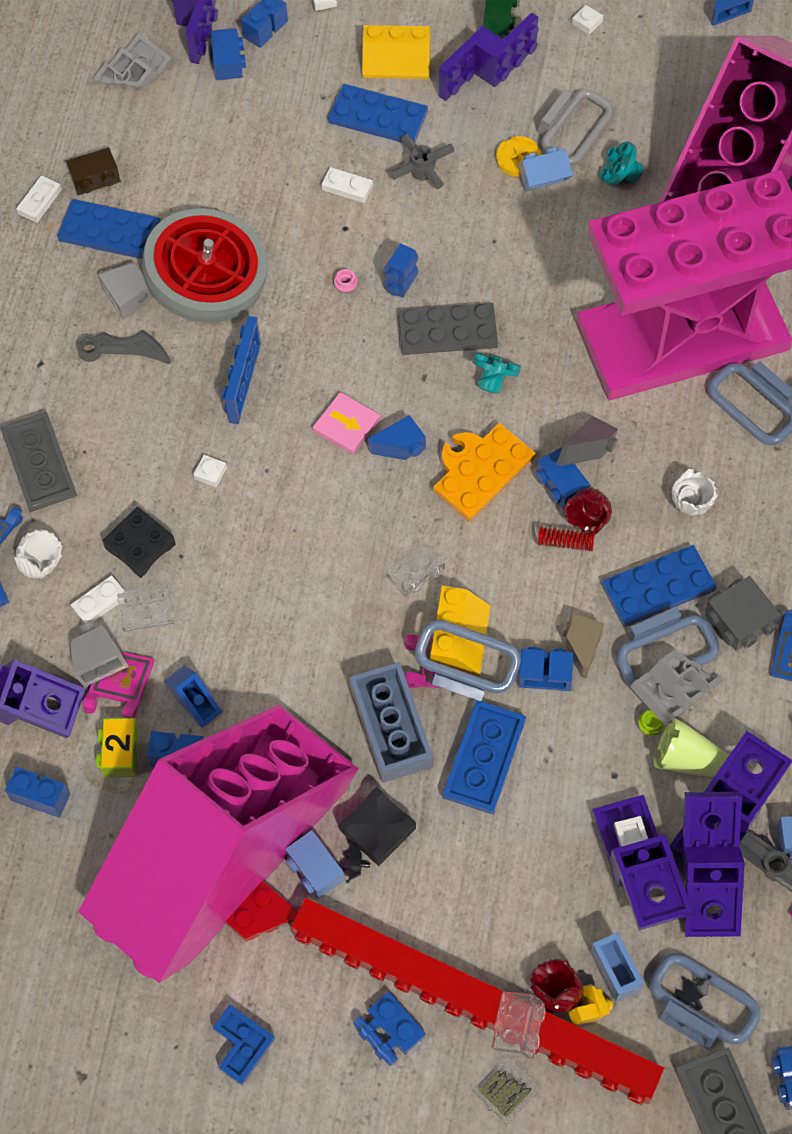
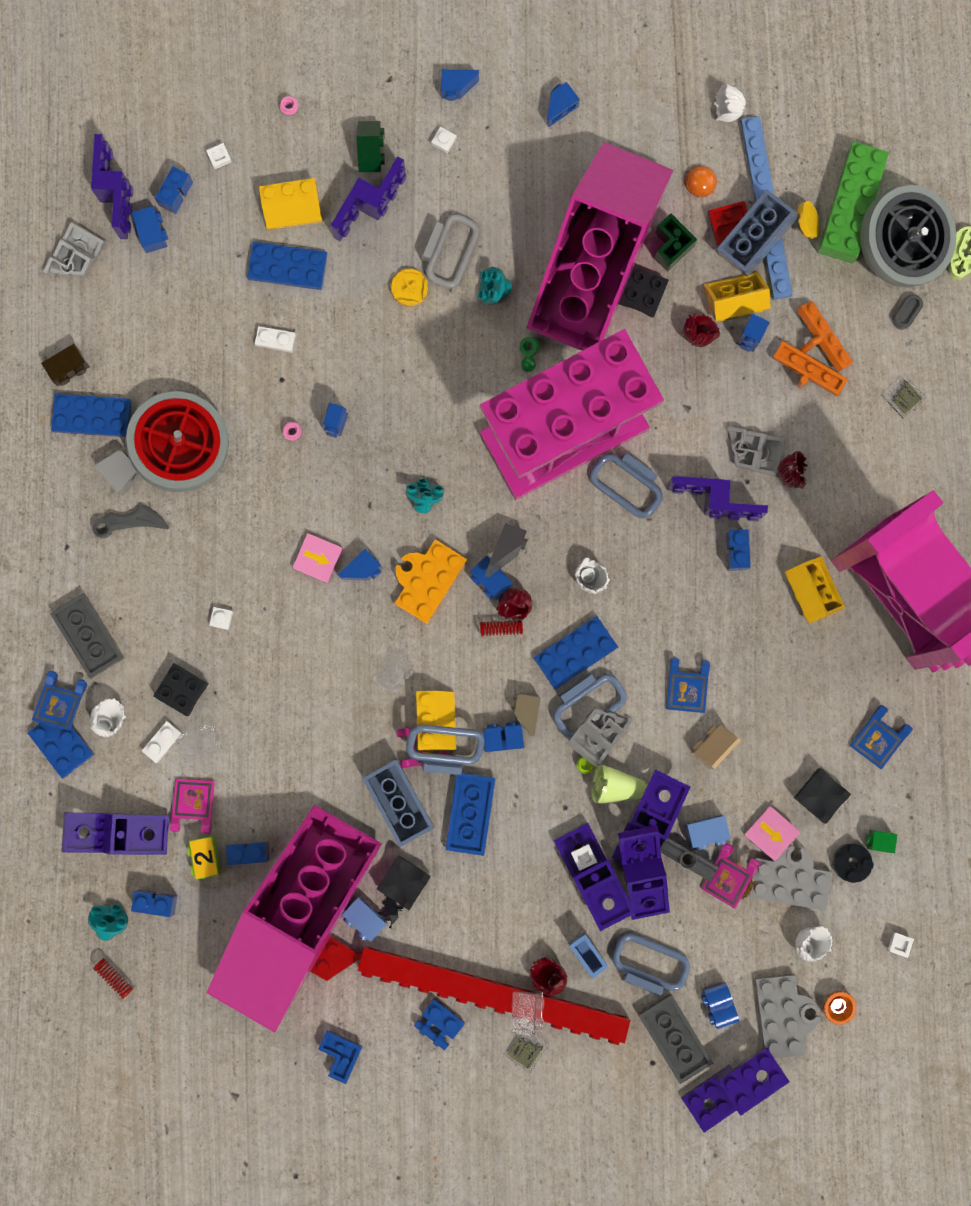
camera: 15 degrees left, 20 degrees up
(39, 199) = (27, 398): white plate -> none
(95, 655) = (170, 789): light grey torso -> none
(193, 695) = (249, 807): blue slope -> none
(242, 371) = (227, 538): blue plate -> none
(422, 162) = (327, 304): dark grey bar -> none
(448, 328) = (380, 459): dark grey plate -> none
(545, 169) = (433, 300): medium blue piece -> none
(593, 1006) = (577, 985): yellow piece -> none
(693, 993) = (641, 958): black piece -> none
(742, 613) = (640, 668): dark grey brick -> none

